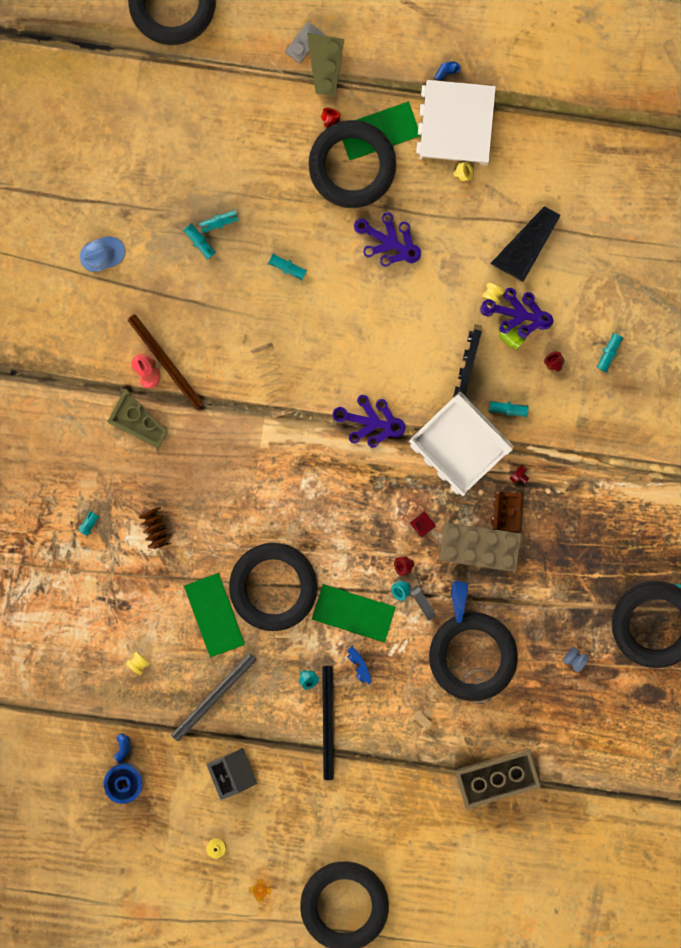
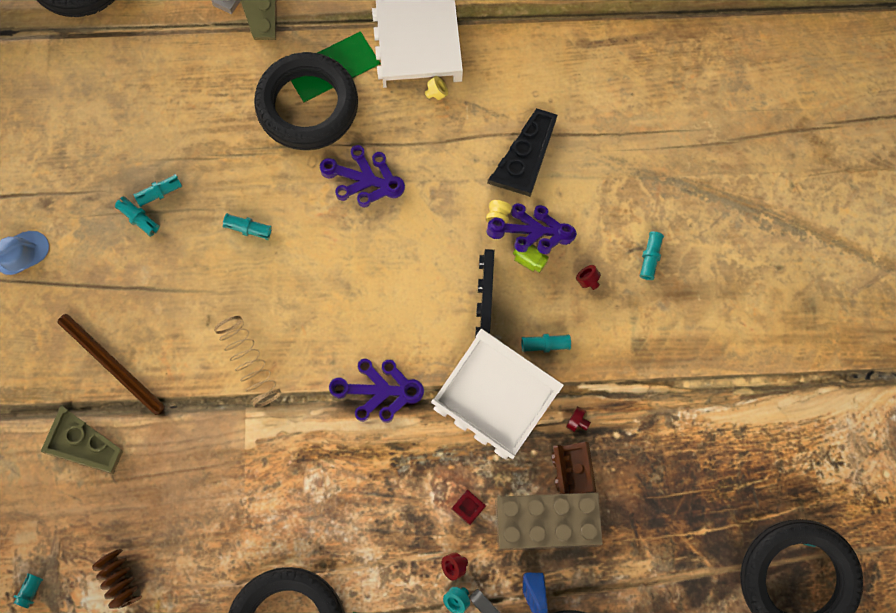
camera: 15 degrees left, 15 degrees down
(144, 366) = (82, 374): coral piece -> none
(330, 116) = (272, 56): red tile -> none

